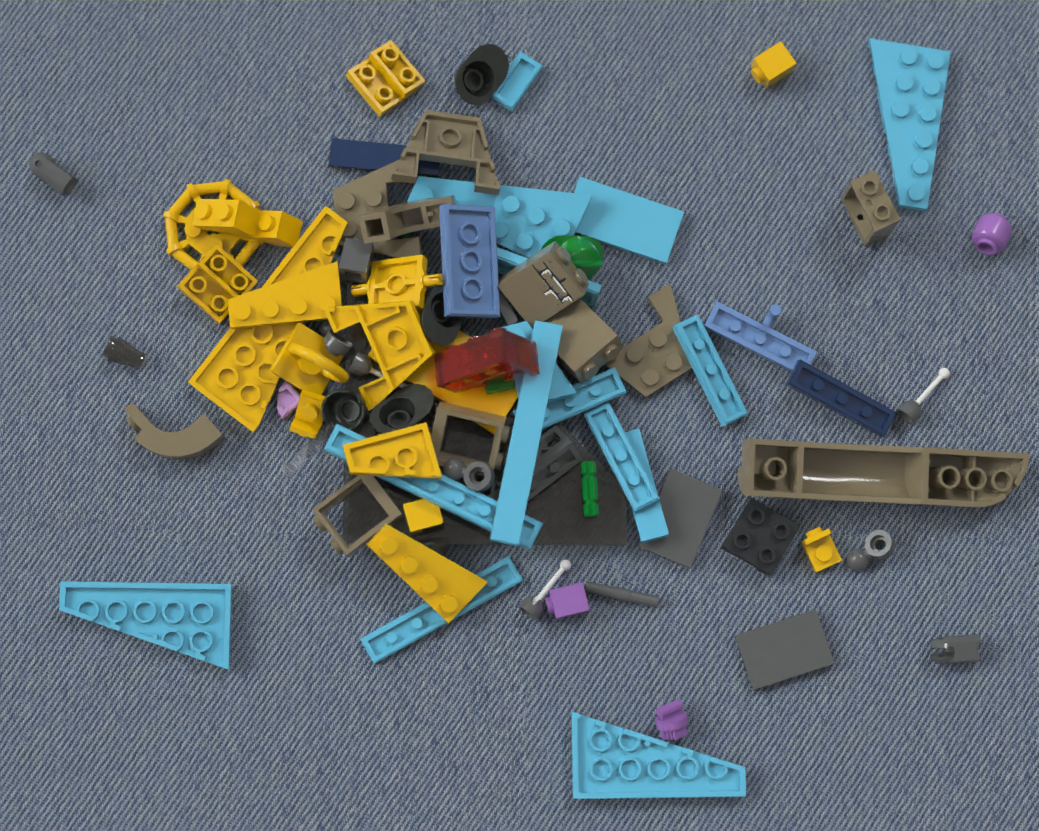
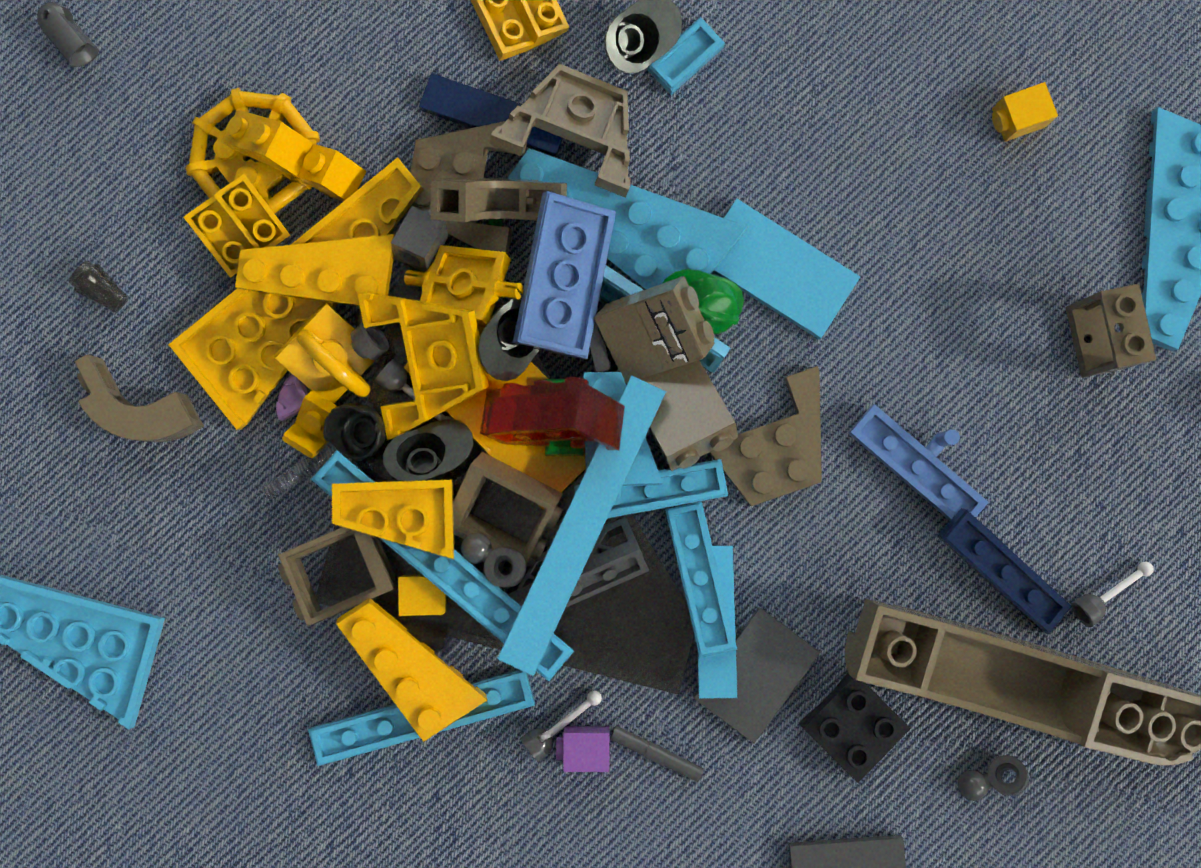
camera: 20 degrees right, 5 degrees up
(589, 489) = (648, 612): green axle -> none
(709, 370) = (843, 492): medium azure tile -> none
(820, 549) = (928, 760): yellow bracket -> none

